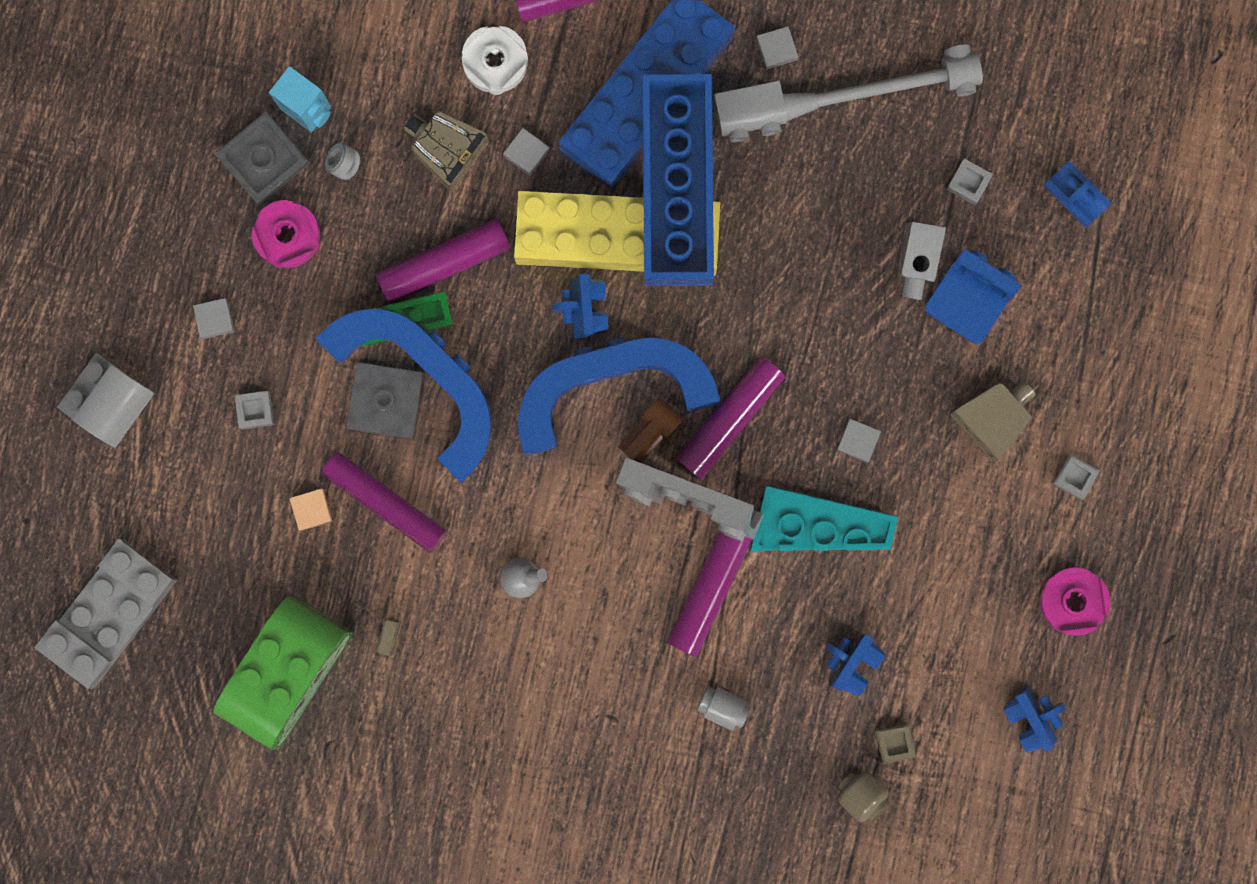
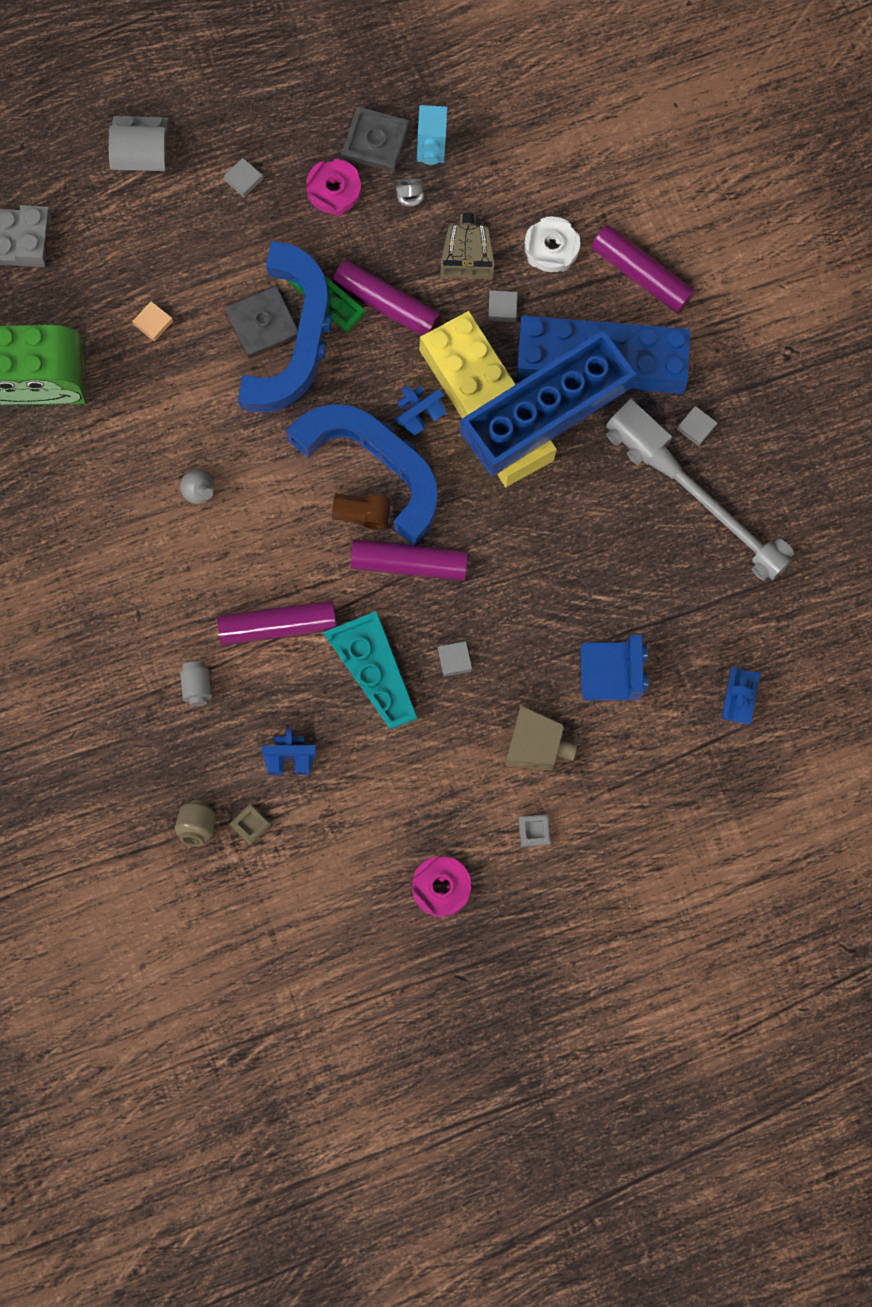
camera: 50 degrees right, 10 degrees down
(254, 410) = (197, 242): light grey tile -> none
(384, 502) = (190, 364): magenta brick -> none
(388, 637) = (96, 425): dark tan tile -> none
(649, 484) = (321, 529): light grey piece -> none
(927, 243) = (625, 605): light grey torso -> none
(969, 181) = (697, 618): light grey tile -> none
(1041, 733) = (337, 913): blue hips -> none

